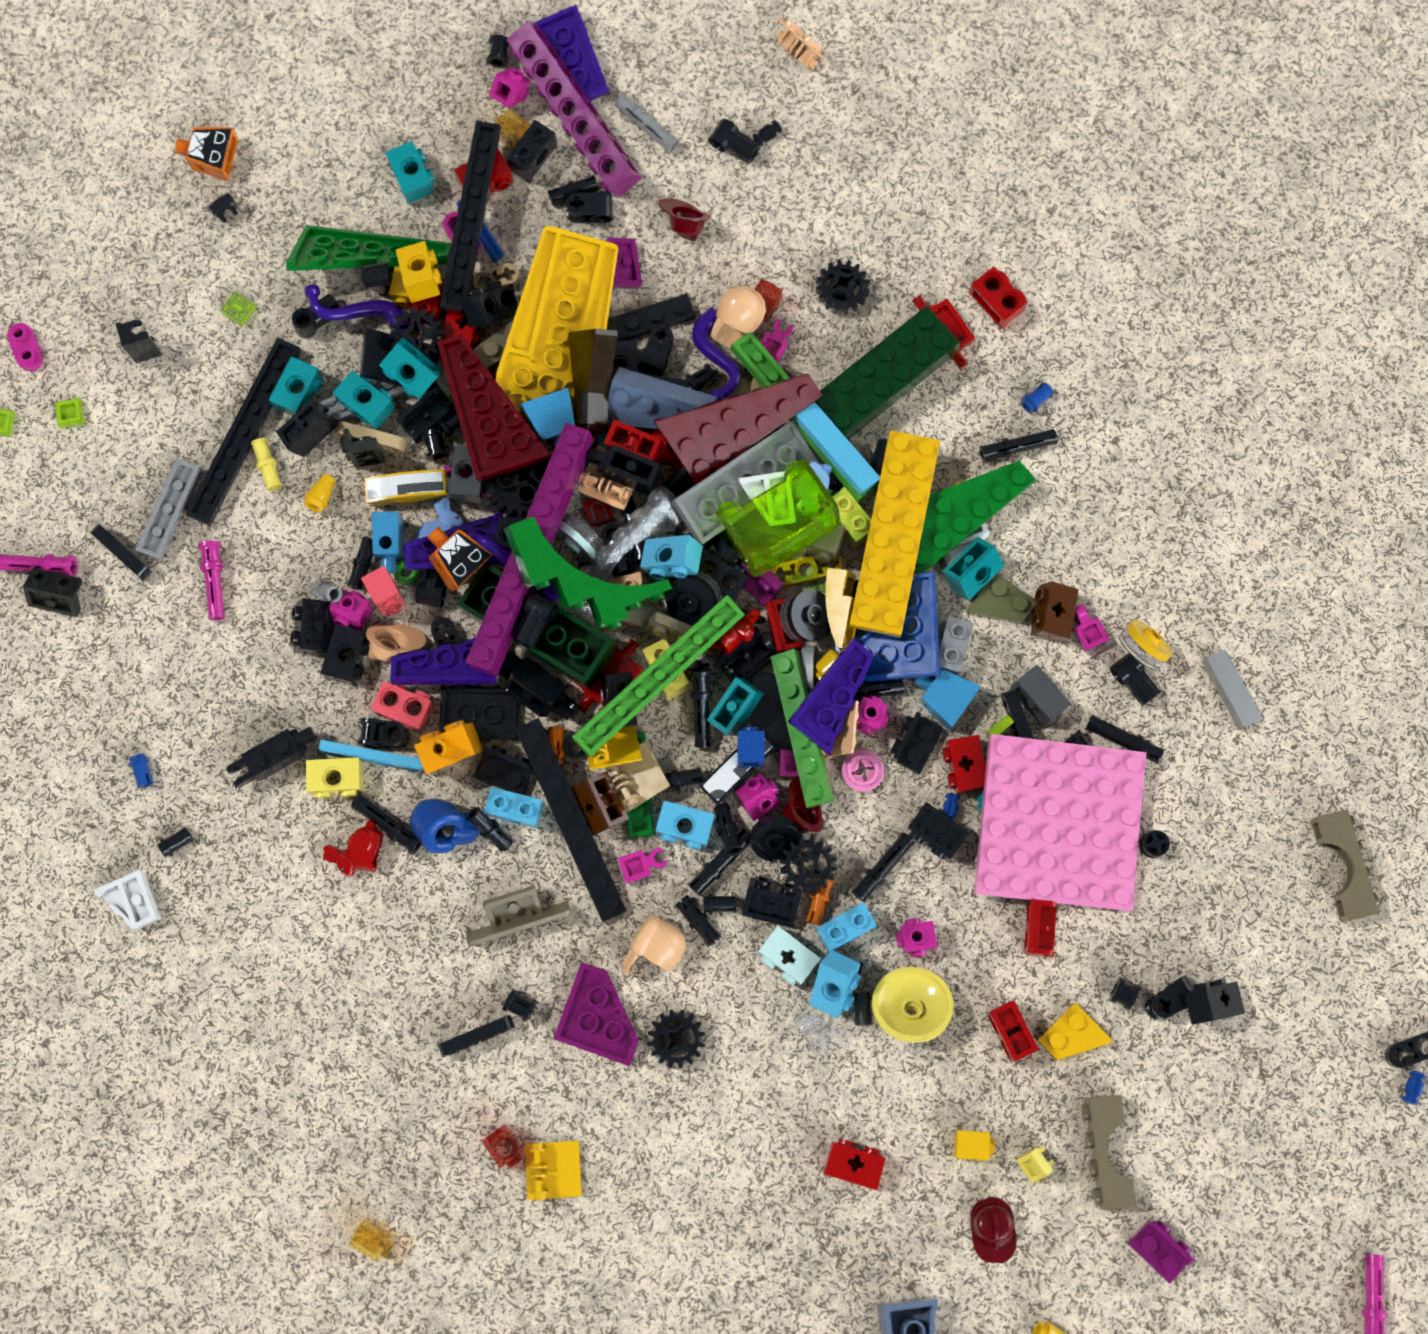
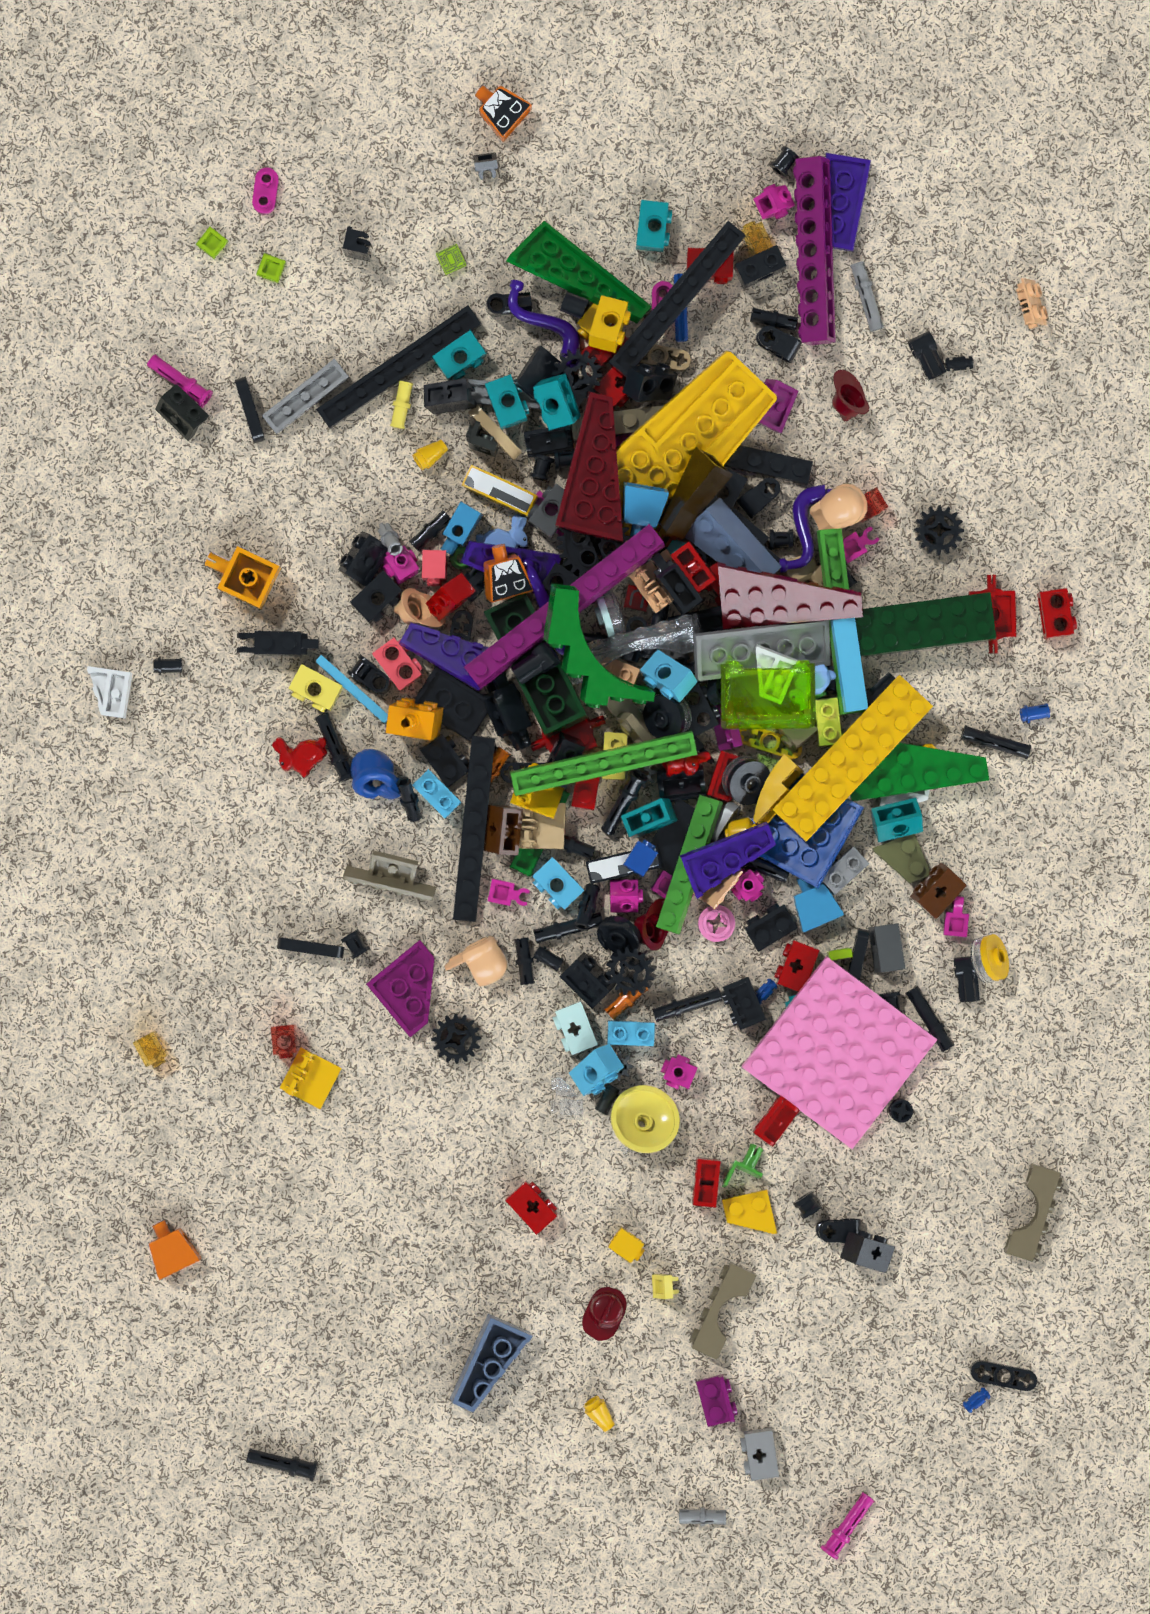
camera: 25 degrees right, 10 degrees up
(141, 770) = (172, 594): blue pin -> none
(194, 699) = (244, 564): none -> light orange brick
(211, 568) = (312, 465): dark pink pin -> none
(415, 610) = (450, 597): none -> red brick
(659, 719) = (585, 794): none -> red brick
(1041, 991) = (748, 1164): none -> bright green bracket
(1232, 689) = (1037, 1031): light grey slope -> none
(1255, 1286) = (767, 1466): none -> light grey brick

